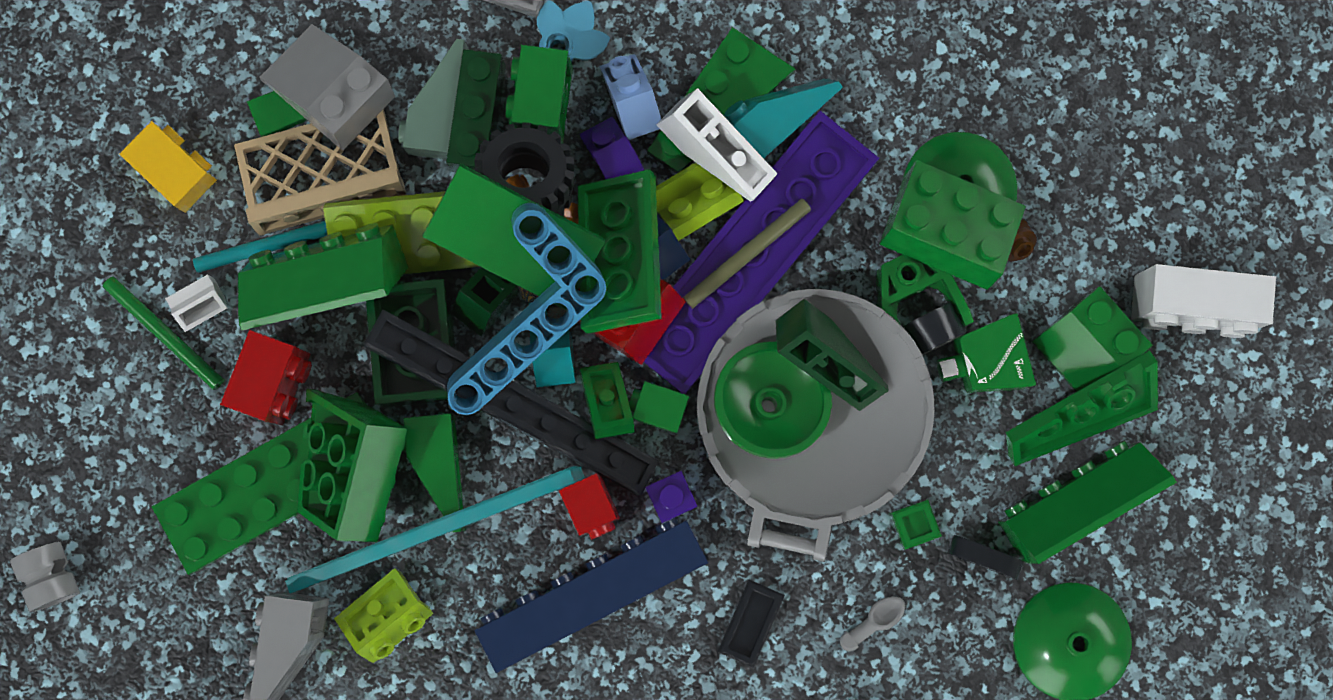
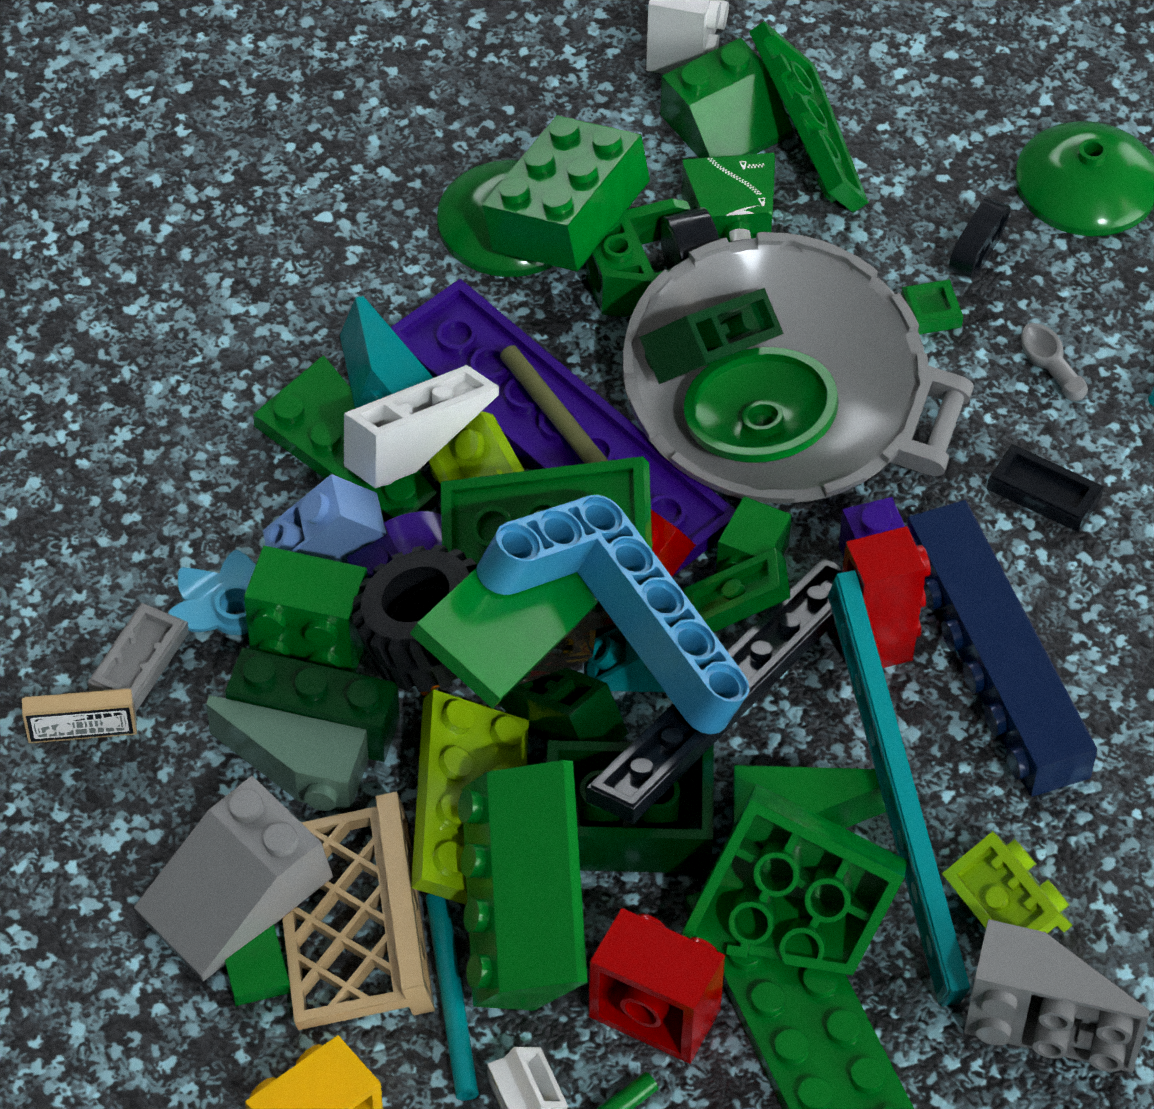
camera: 85 degrees left, 30 degrees down
(1084, 502) = (923, 127): green slope -> none

